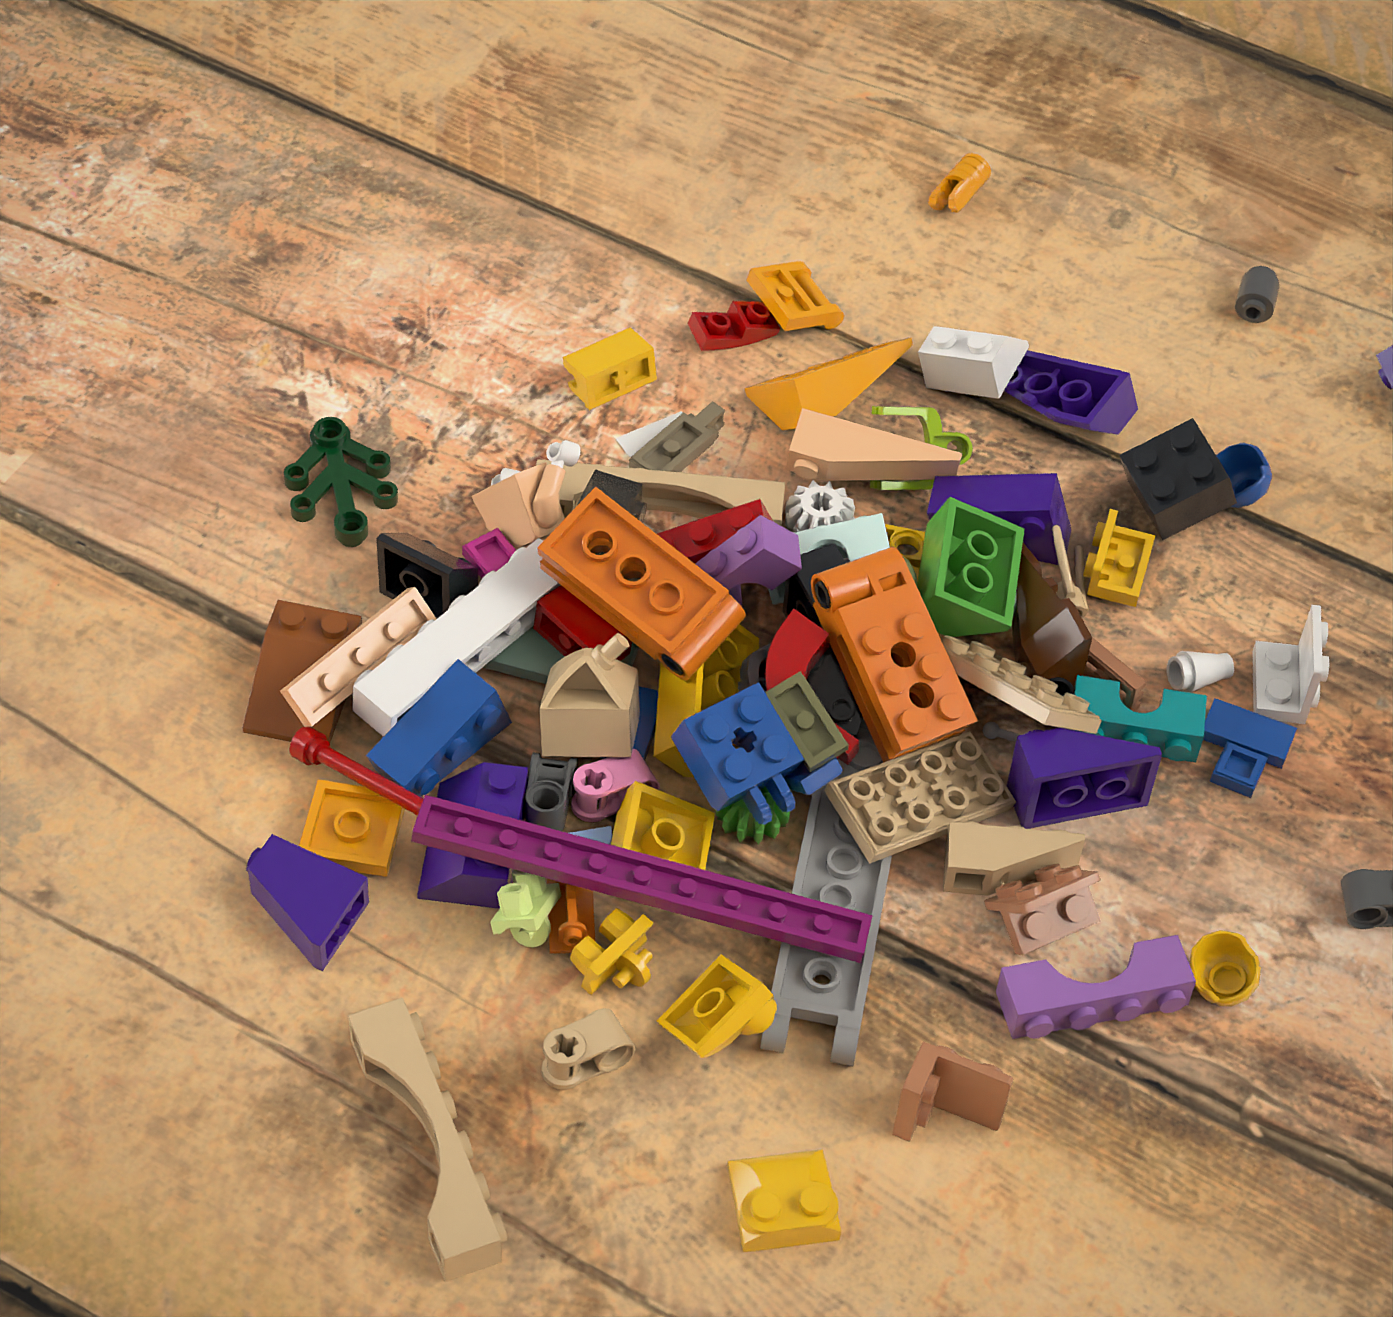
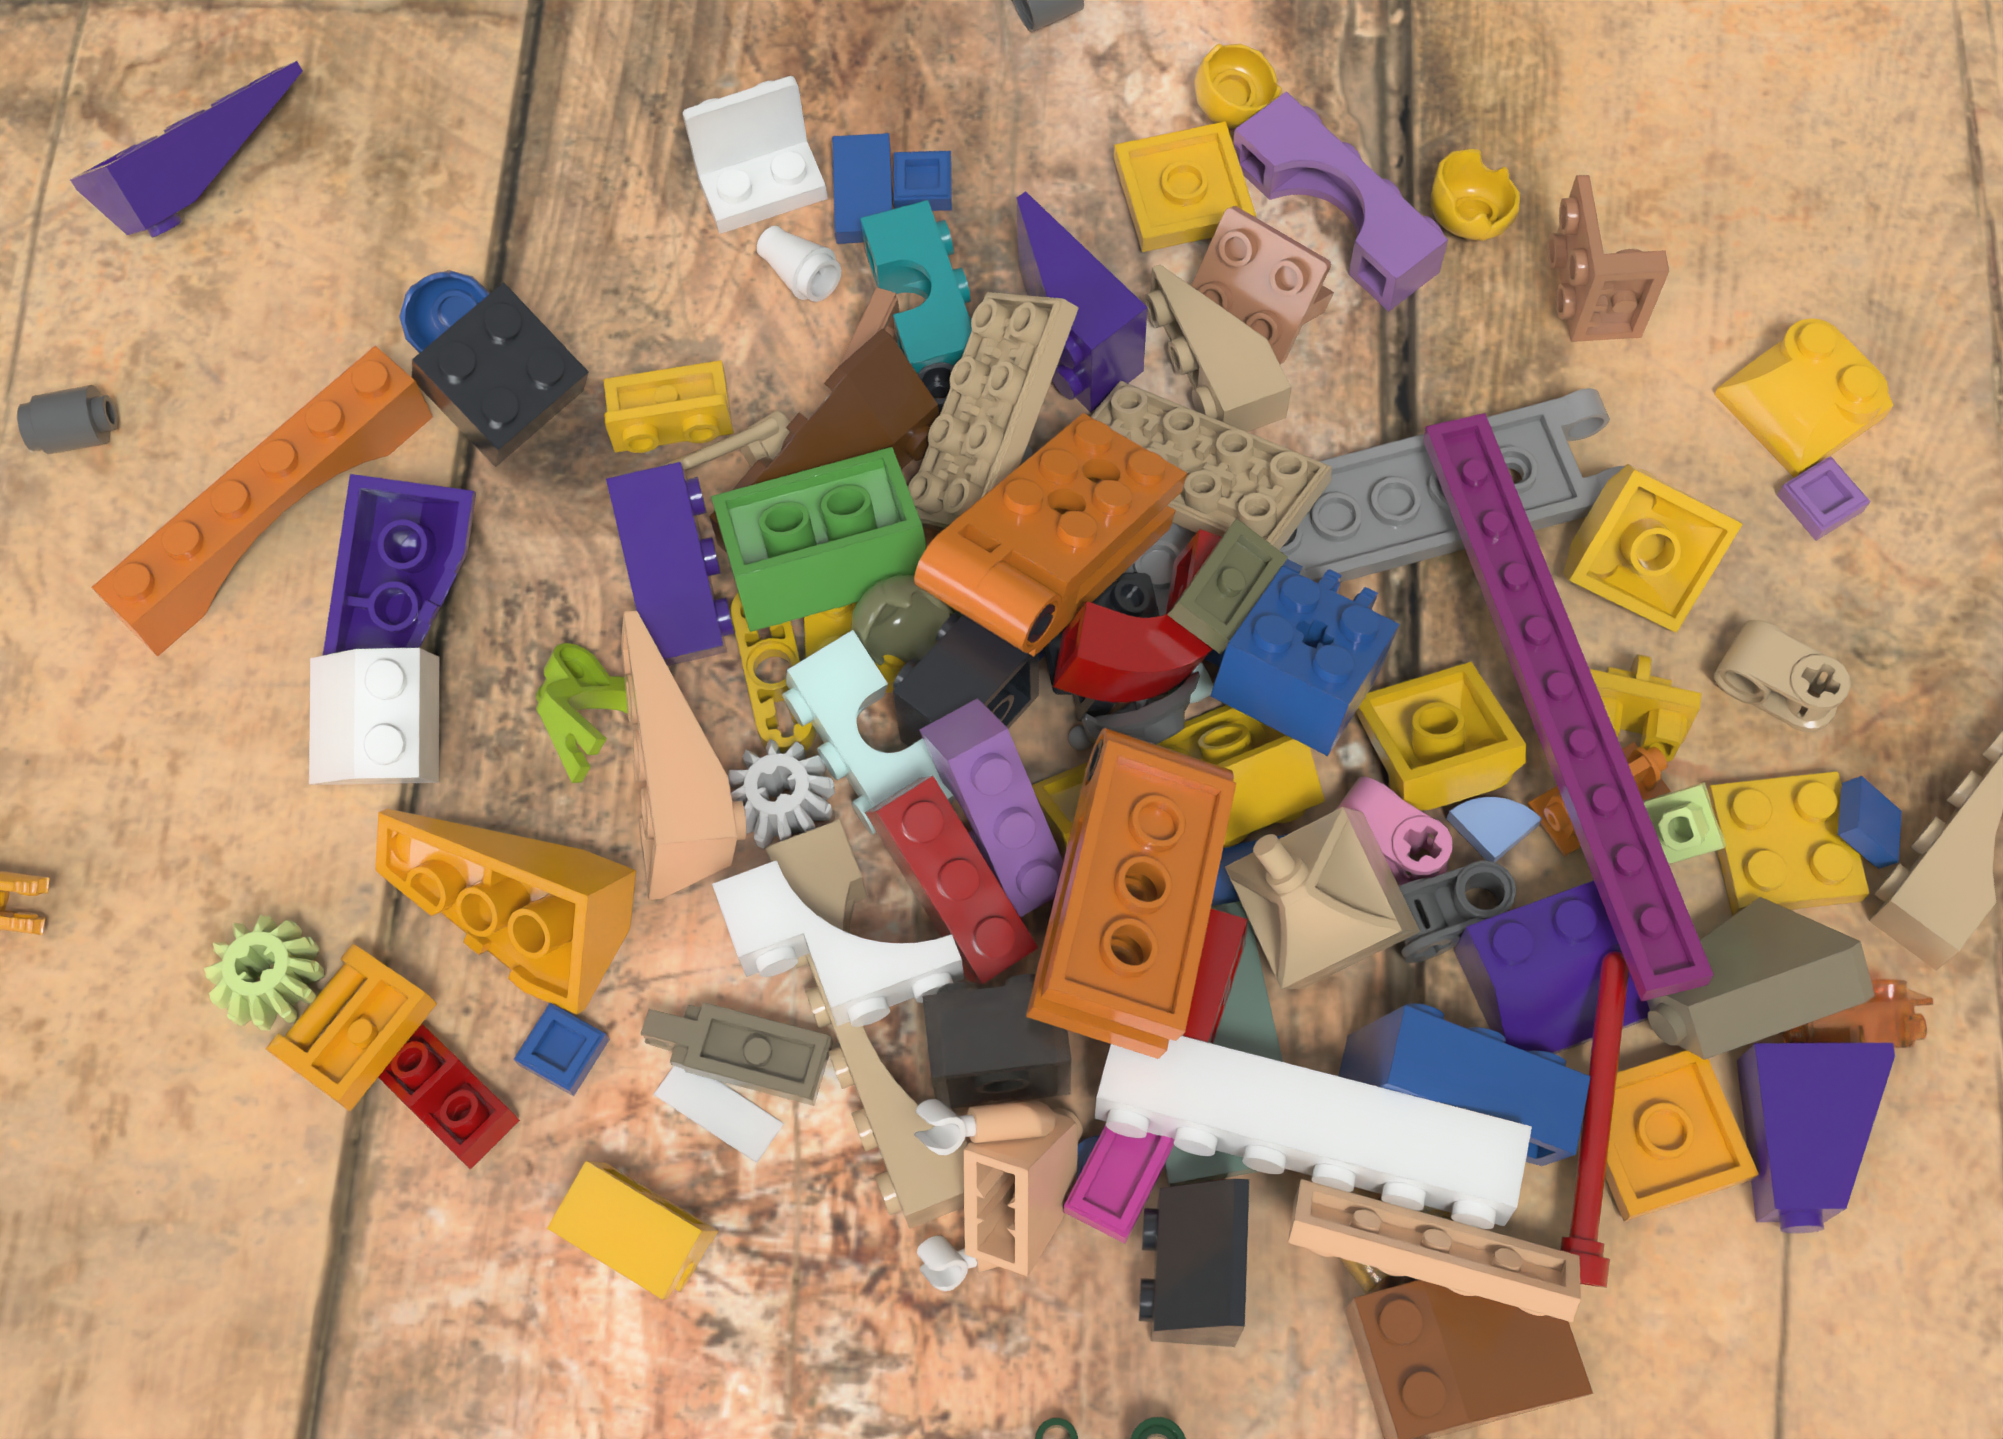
camera: 110 degrees left, 15 degrees up
(361, 953) = (1882, 1019): none -> clear orange hinge
(404, 901) = (1767, 978): none -> dark tan slope
(460, 1036) = (1869, 822): none -> blue tile
(479, 997) = (1786, 843): none -> yellow plate
(684, 472) = (856, 973): none -> white arch
(701, 1165) = (1823, 498): none -> medium lavender tile
(729, 380) = (561, 1049): none -> blue tile
(847, 273) = (251, 958): none -> yellowish green gear
(1054, 1065) = (1473, 198): none -> yellow hair
(1122, 308) = (180, 568): none -> orange arch
(1154, 903) = (1181, 184): none -> yellow plate

